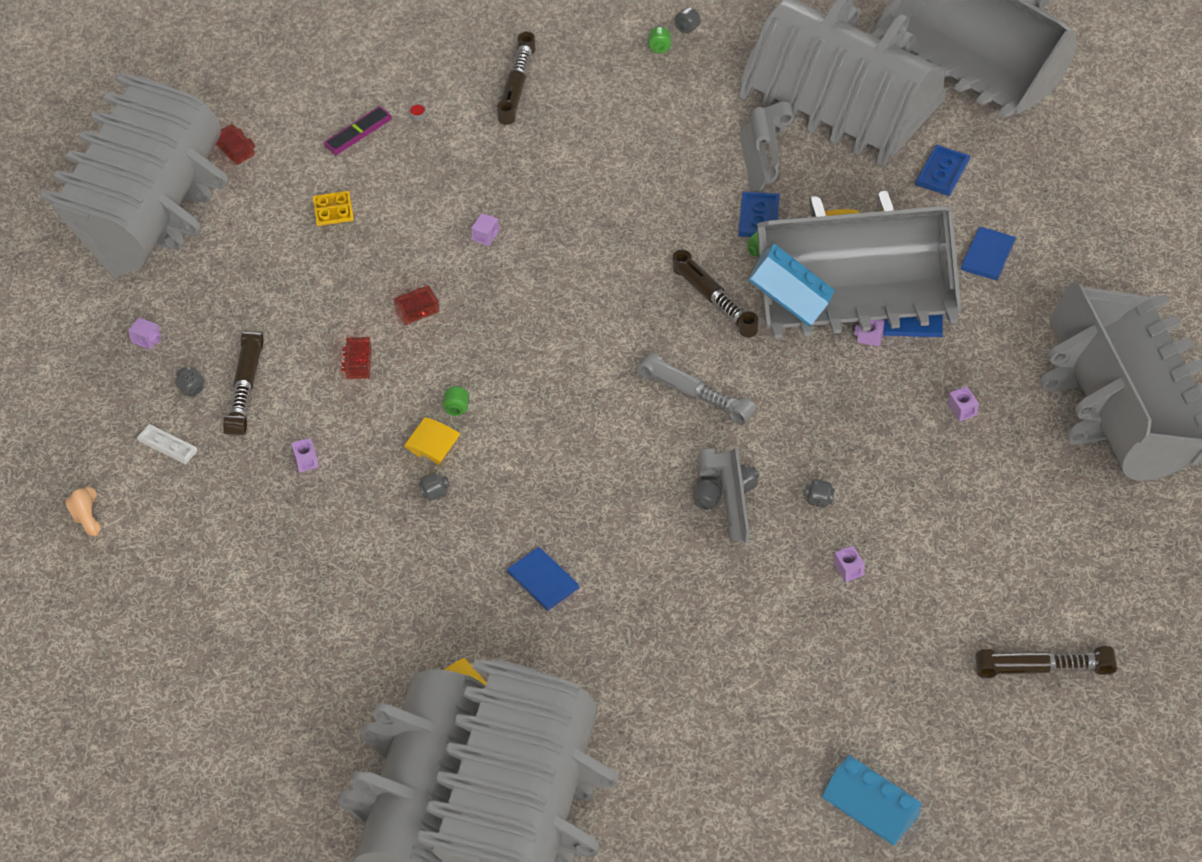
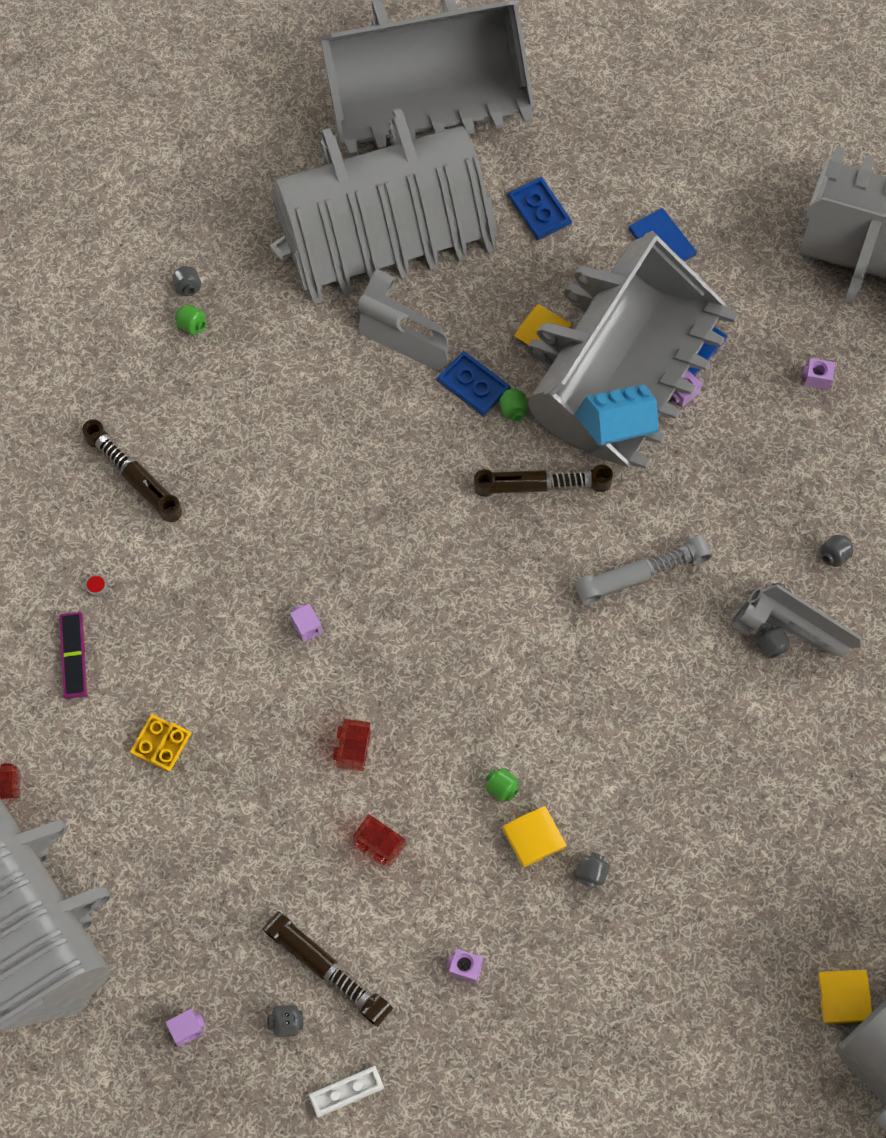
camera: 55 degrees left, 15 degrees up
(543, 578) = (767, 842): blue tile -> none

